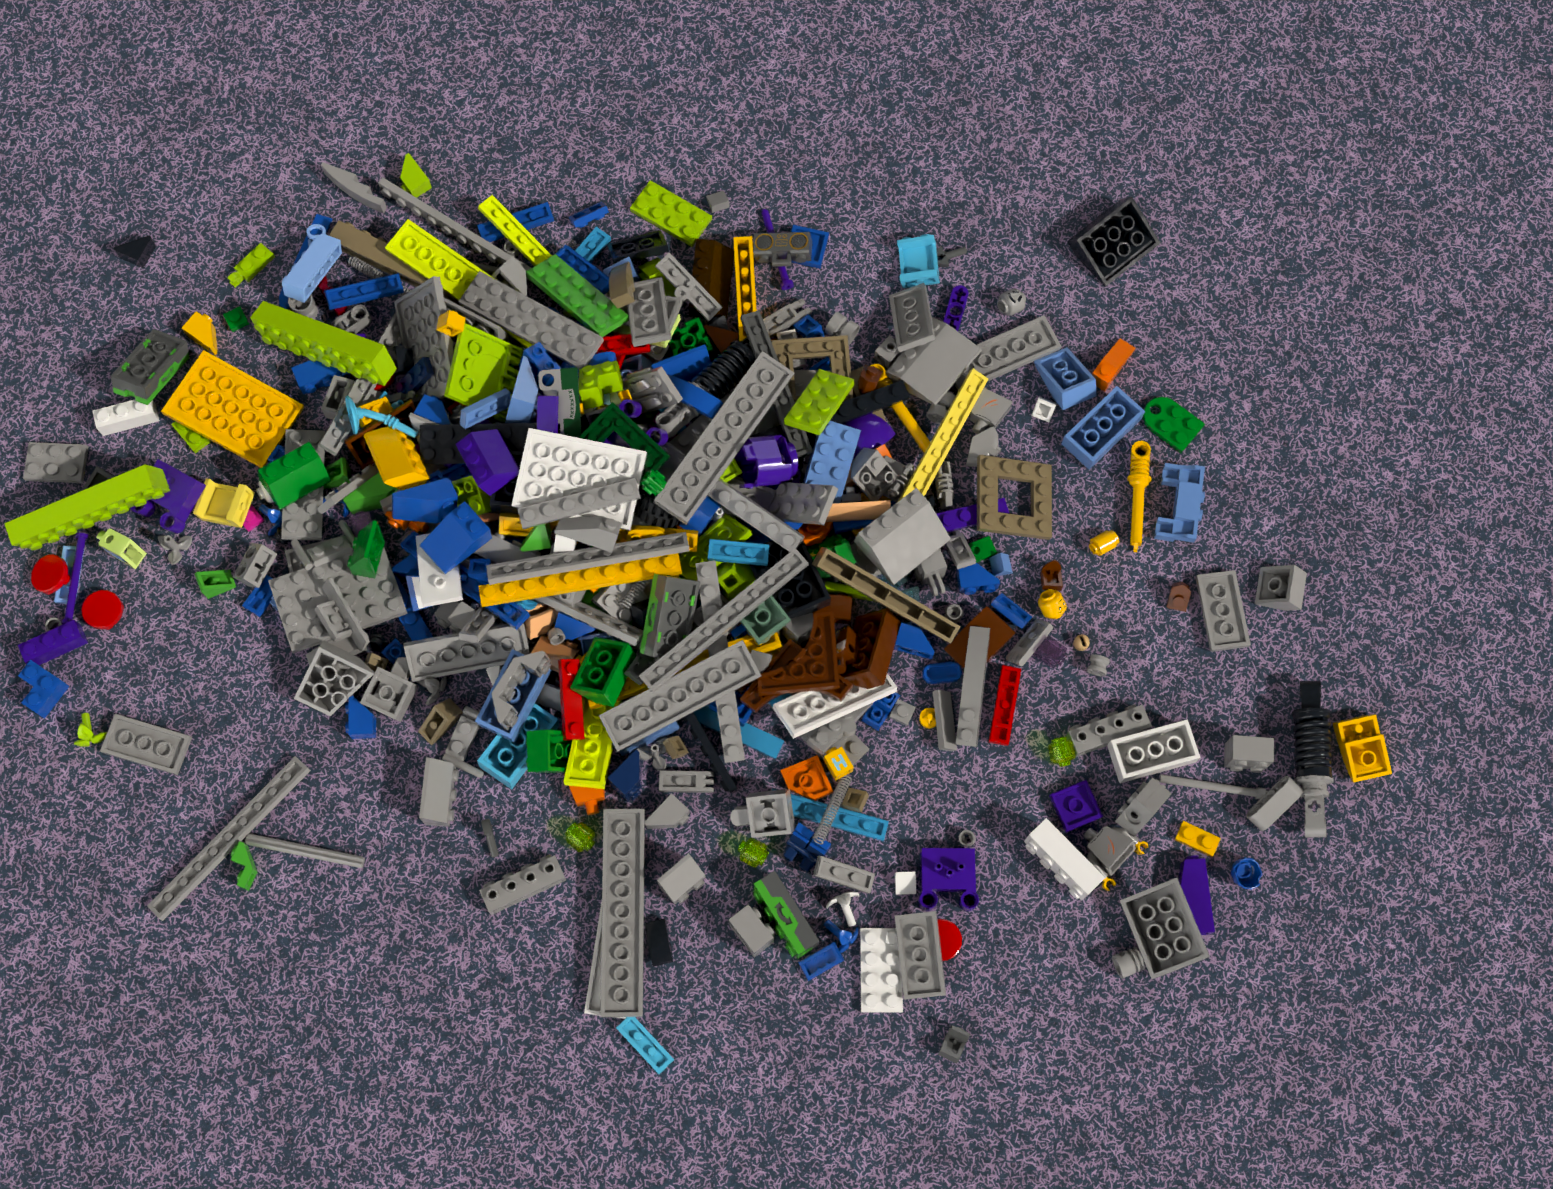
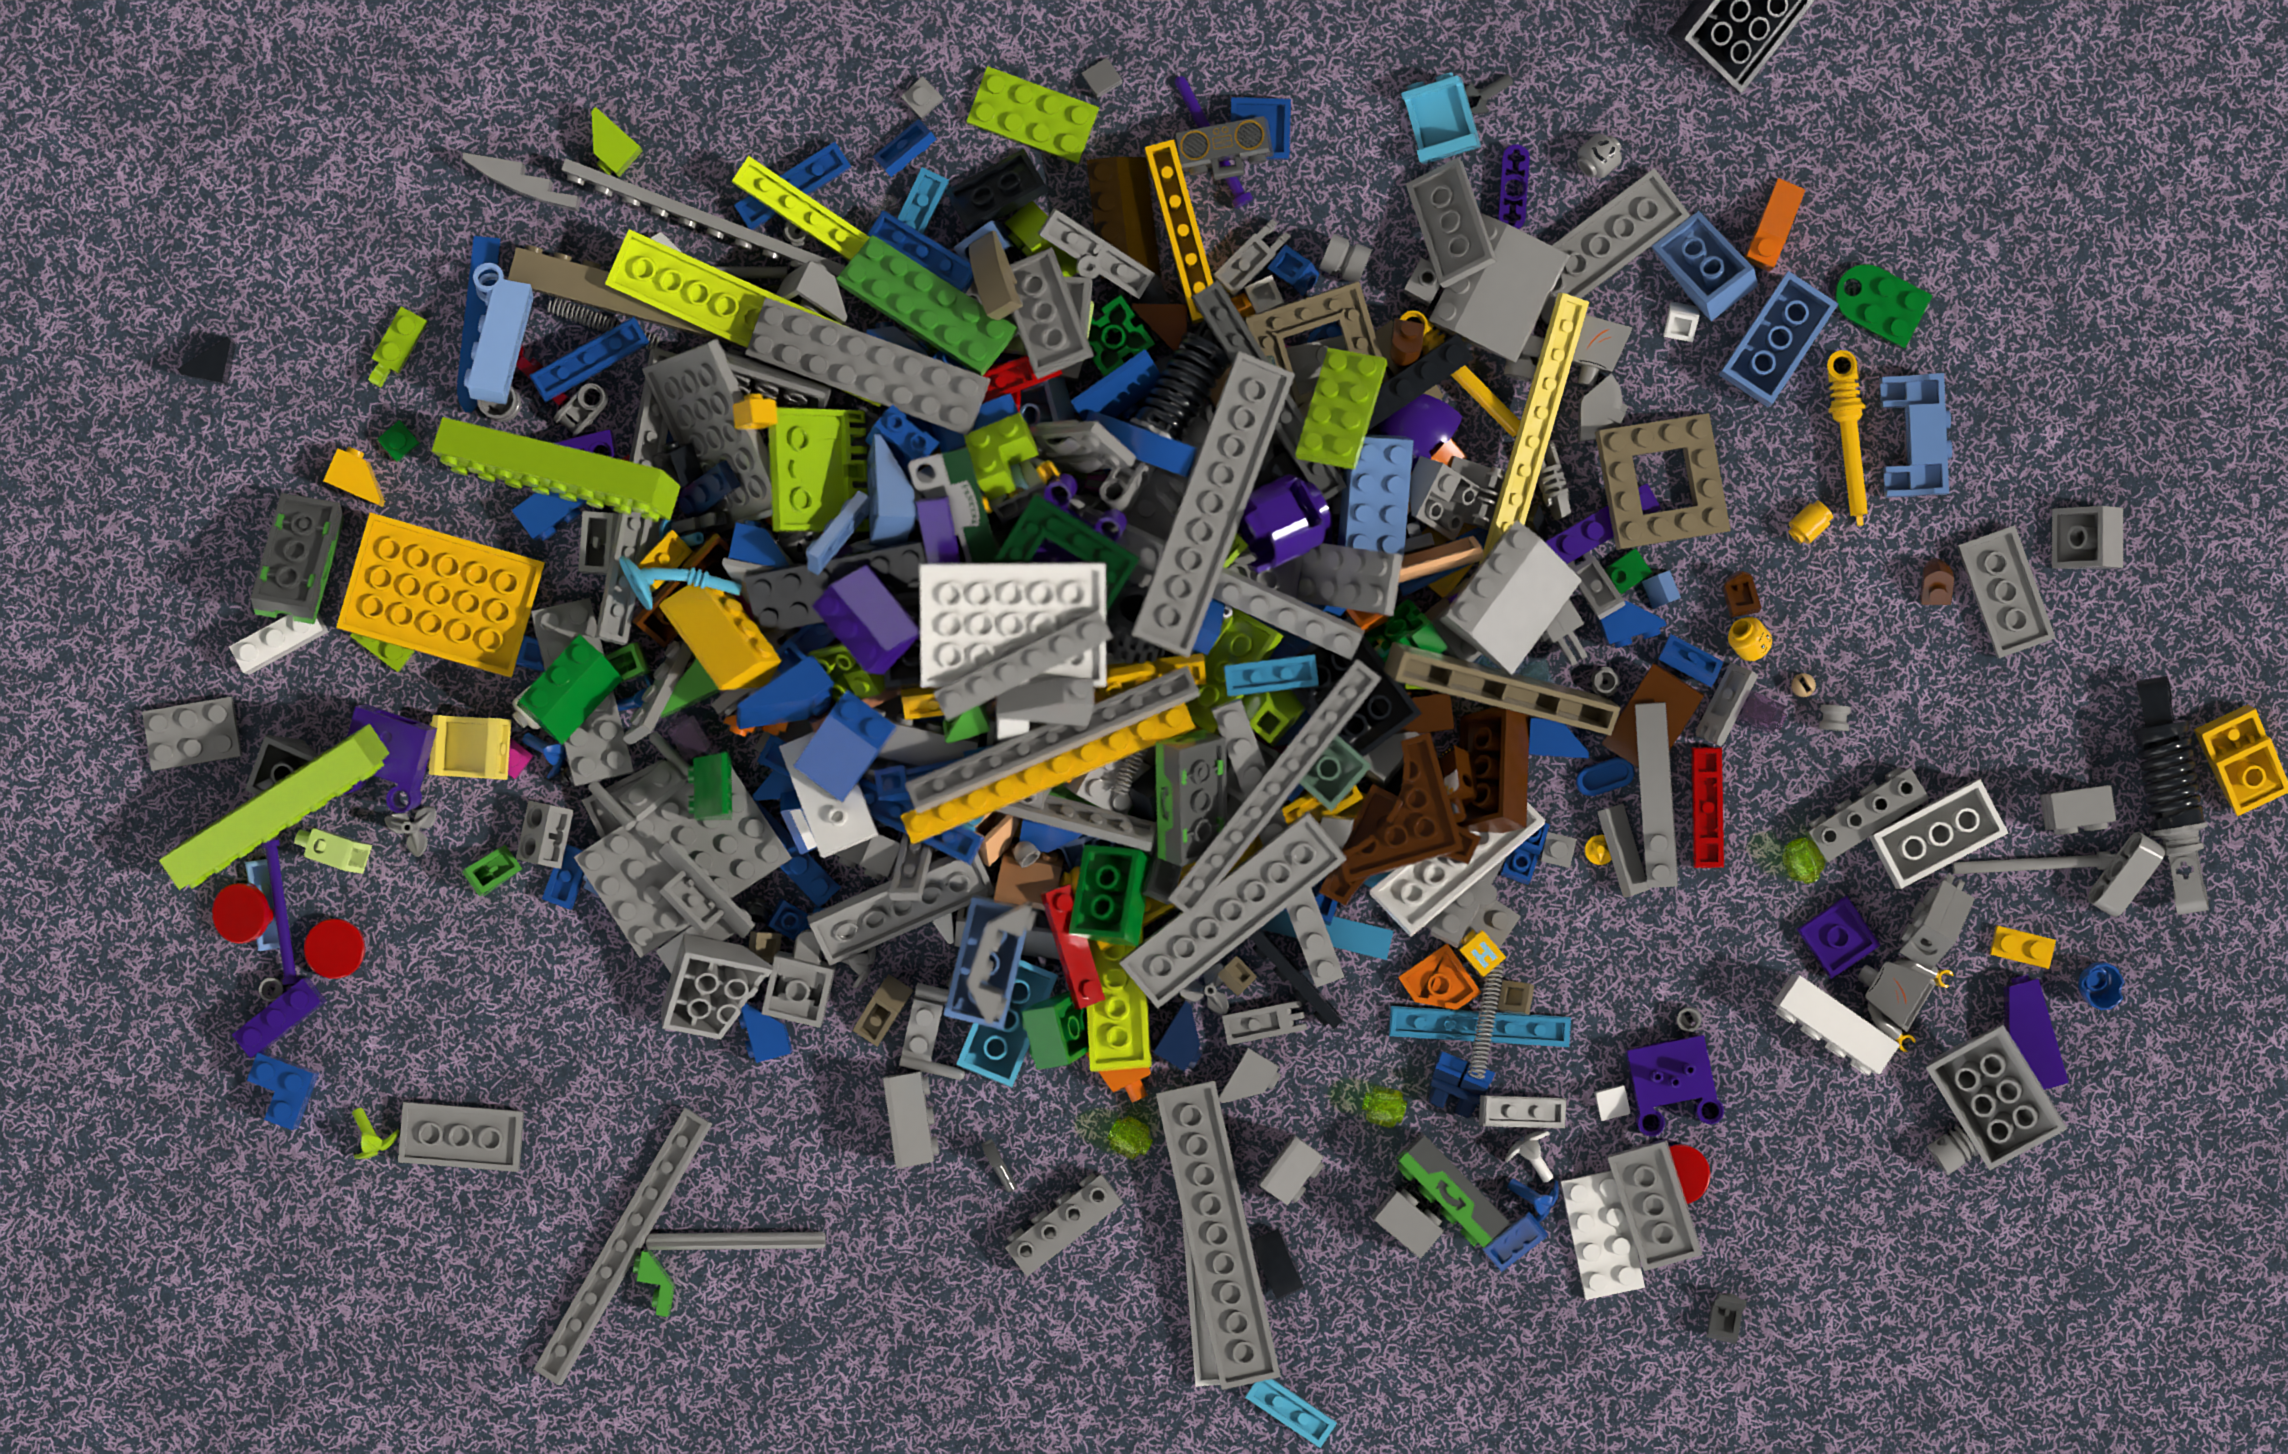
camera: 10 degrees left, 15 degrees up
(606, 190) = (922, 97): none -> light grey plate
(653, 482) = (1125, 607): green gear -> none
(766, 811) = (1394, 1049): light grey brick -> none

